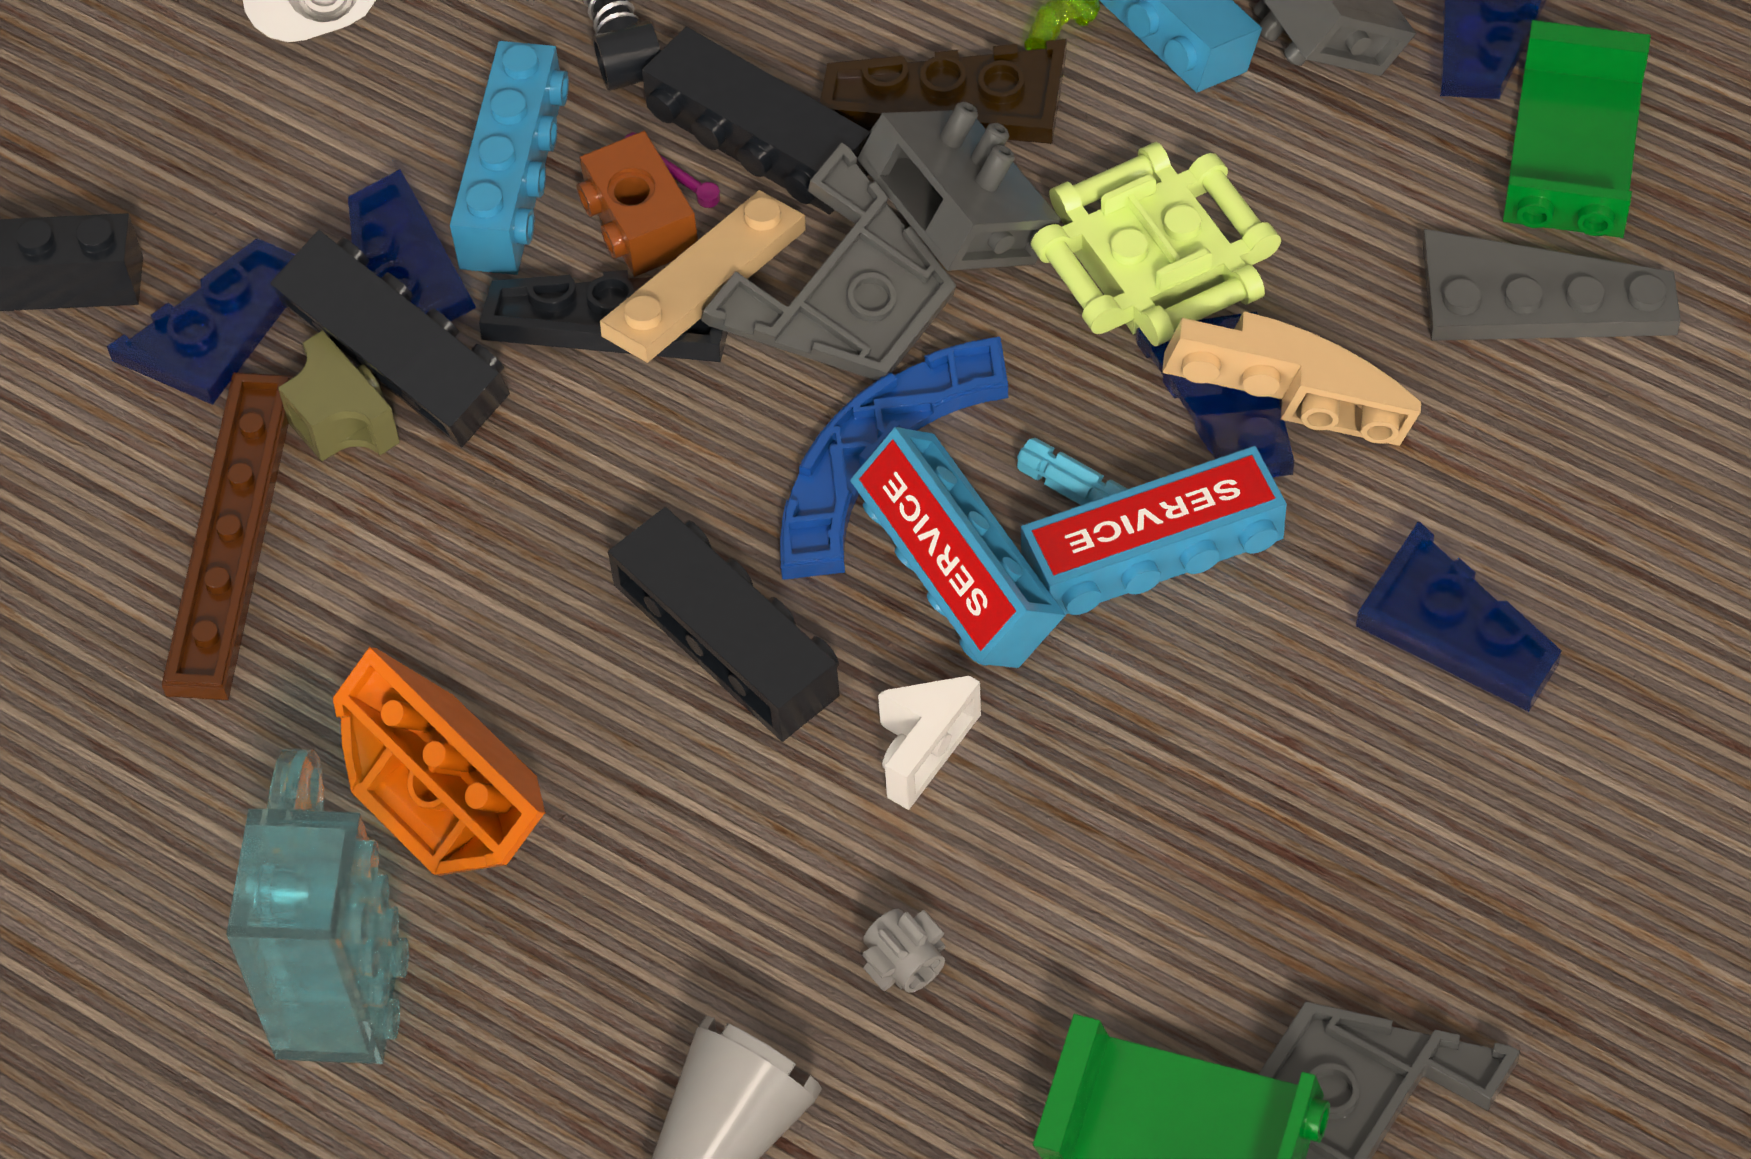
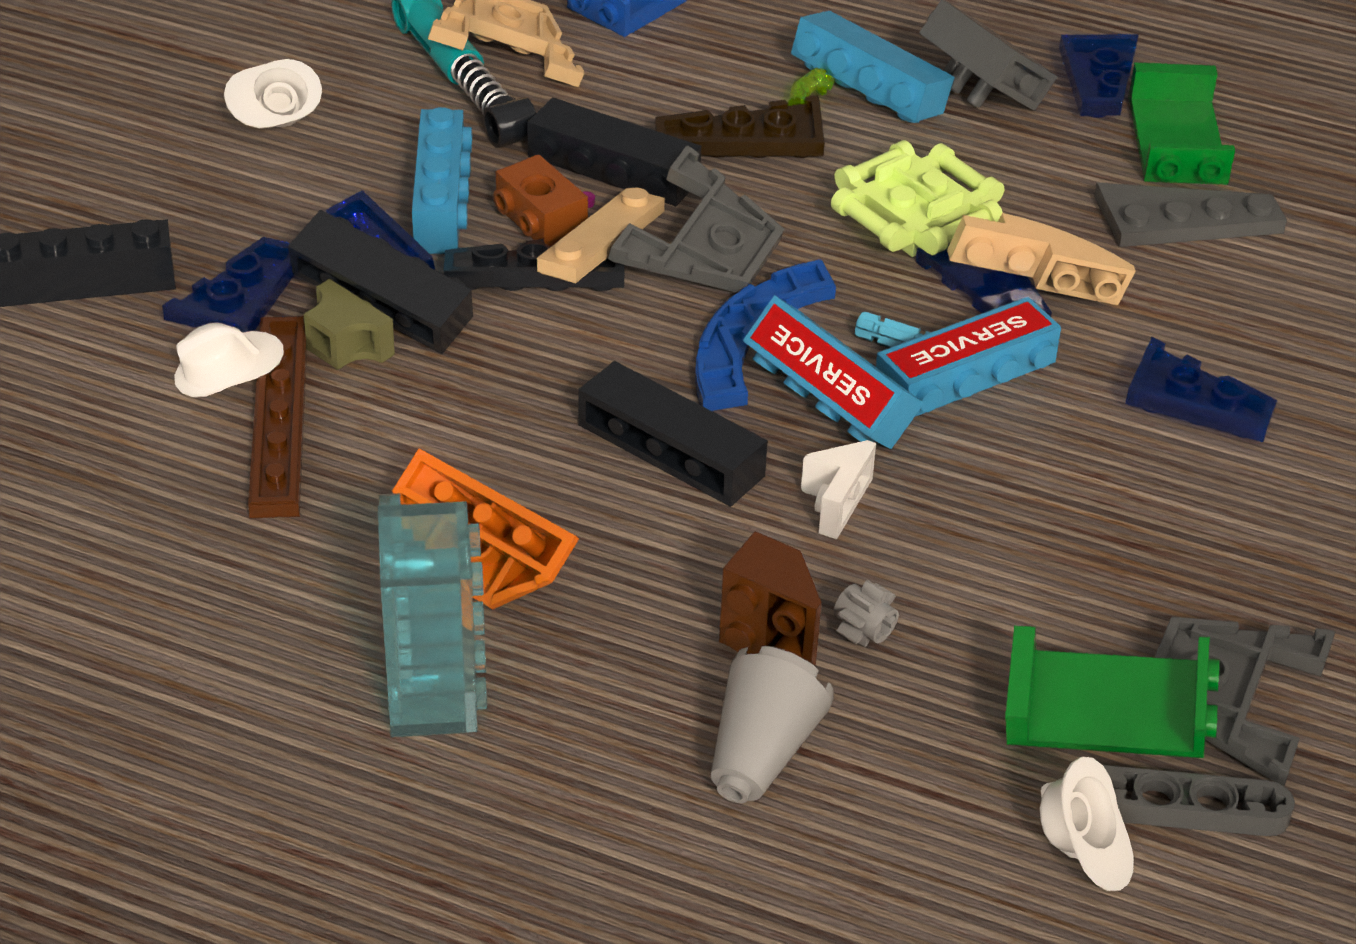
camera: 15 degrees left, 15 degrees down
(175, 442) = (222, 357): none -> white piece
(769, 935) = (769, 600): none -> reddish brown slope
(957, 186) = (772, 169): dark grey piece -> none

